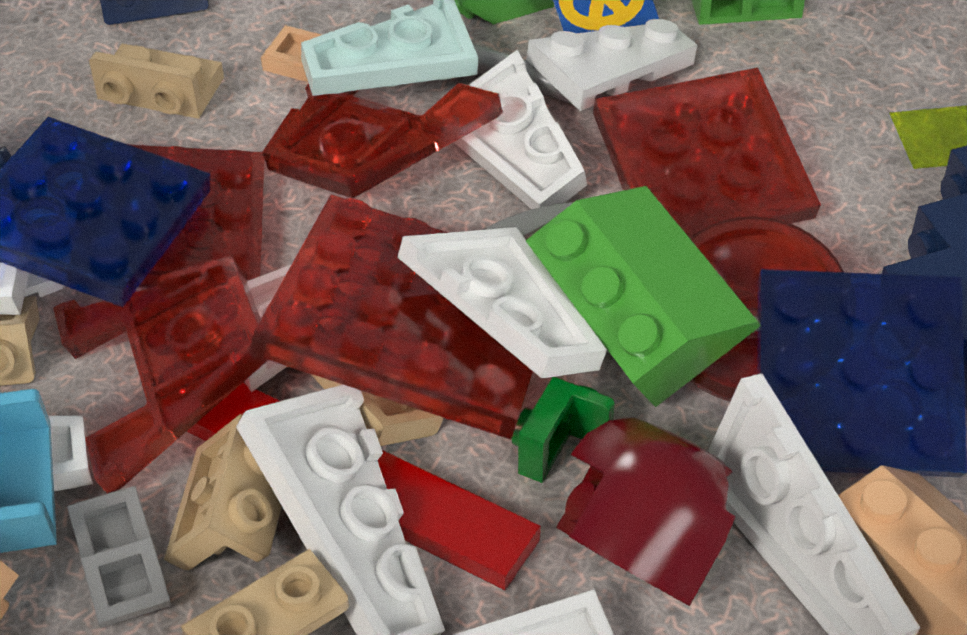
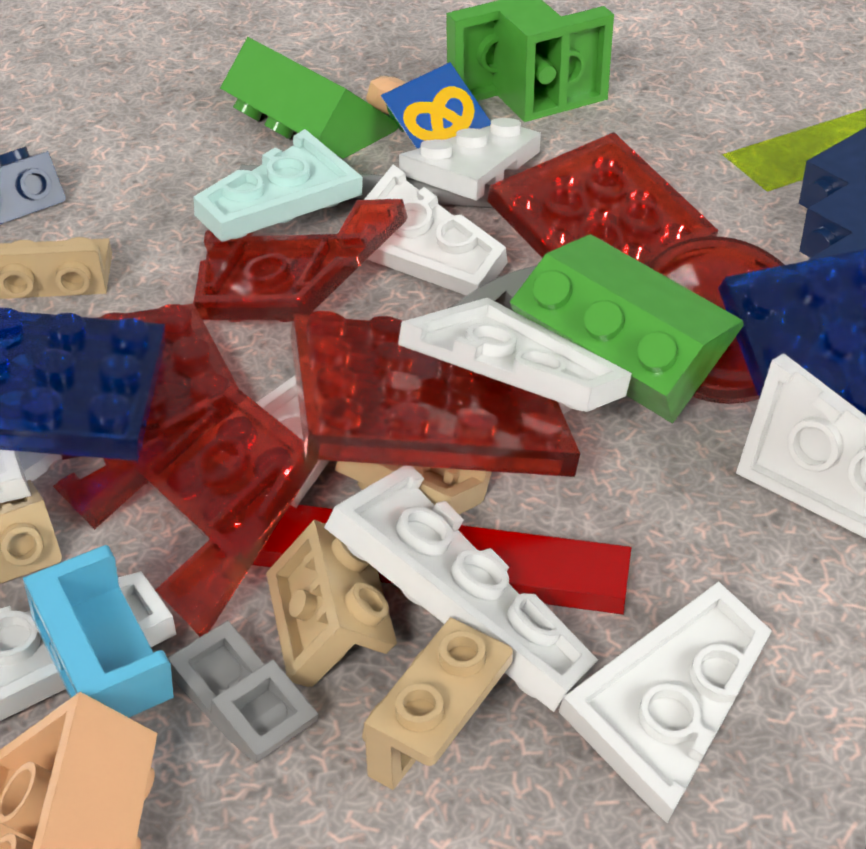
camera: 20 degrees left, 5 degrees down
(284, 53) = (173, 219): light nougat tile -> none
(560, 412) = (606, 445): green bracket -> none
(650, 504) = (729, 498): dark red brick -> none

